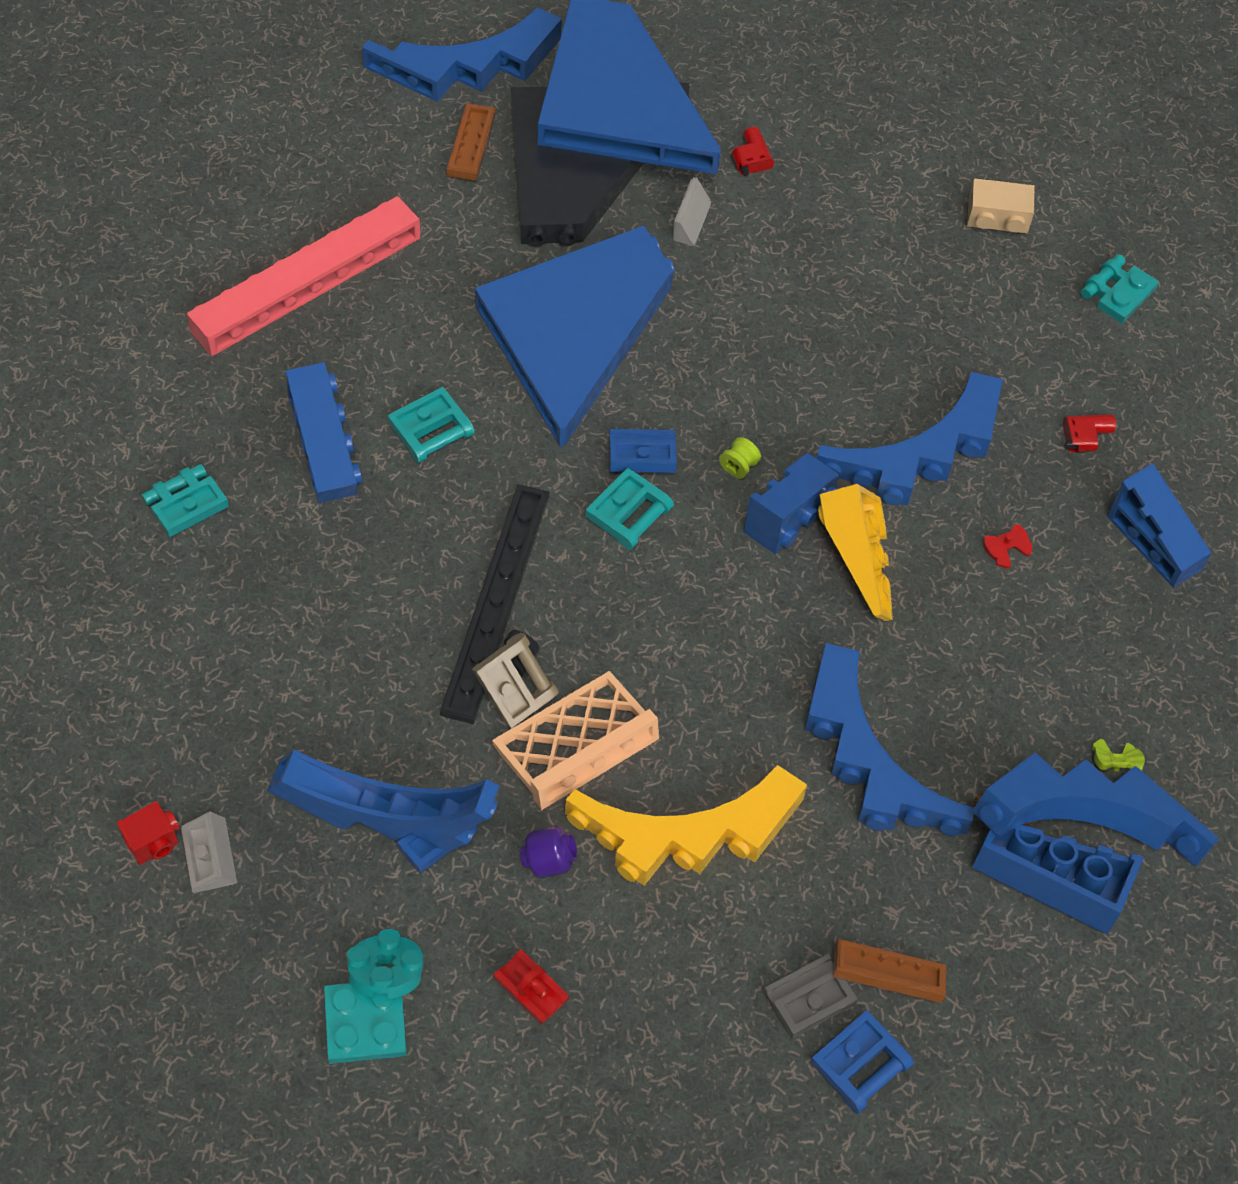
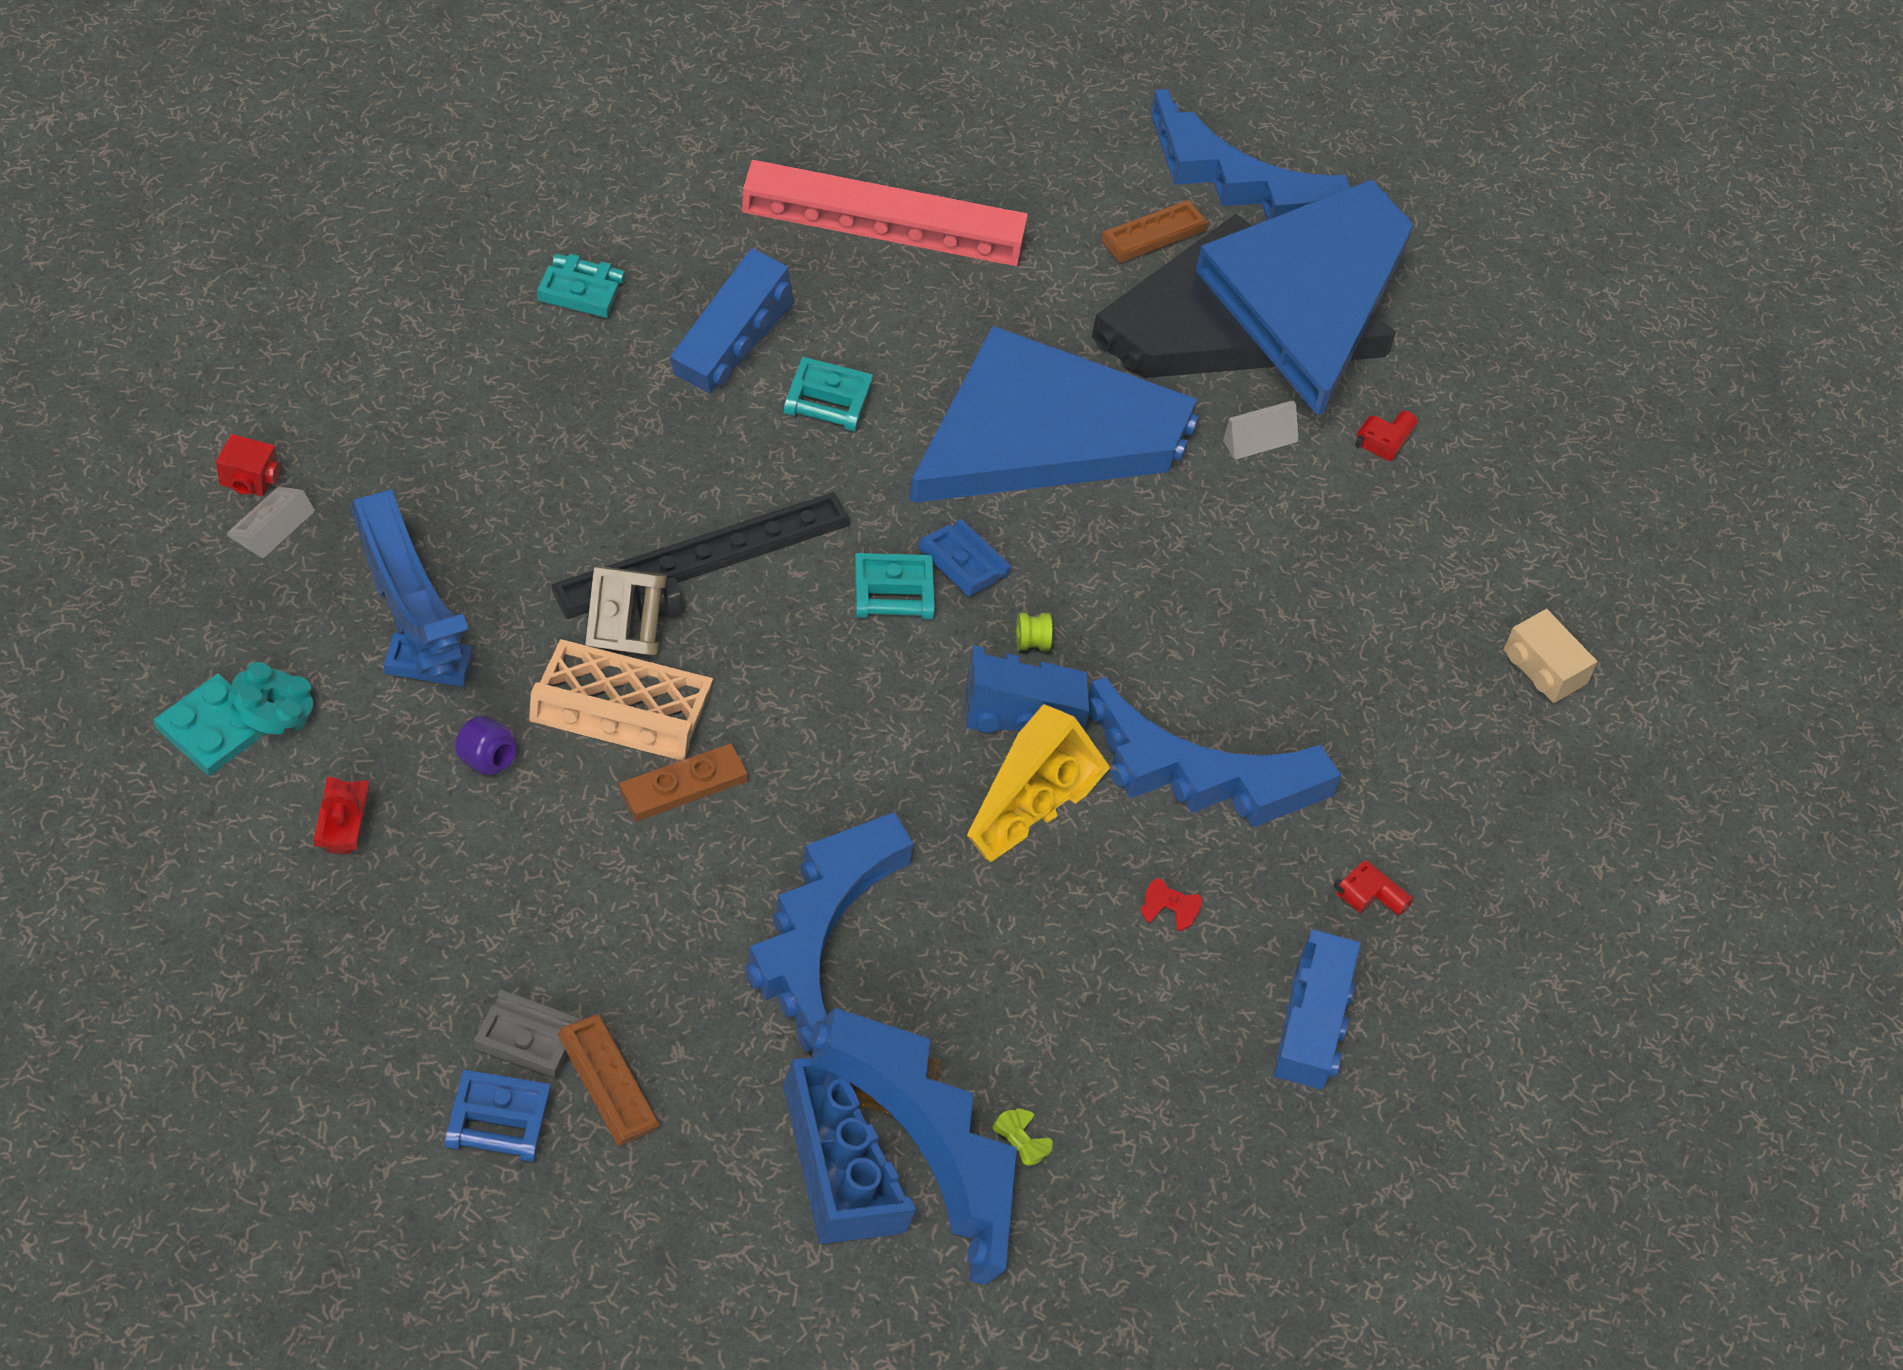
camera: 45 degrees right, 5 degrees down
(679, 752) = (683, 782): none -> dark orange plate
(695, 838) = (649, 872): yellow arch -> none
(1126, 295) = (1576, 829): teal plate -> none

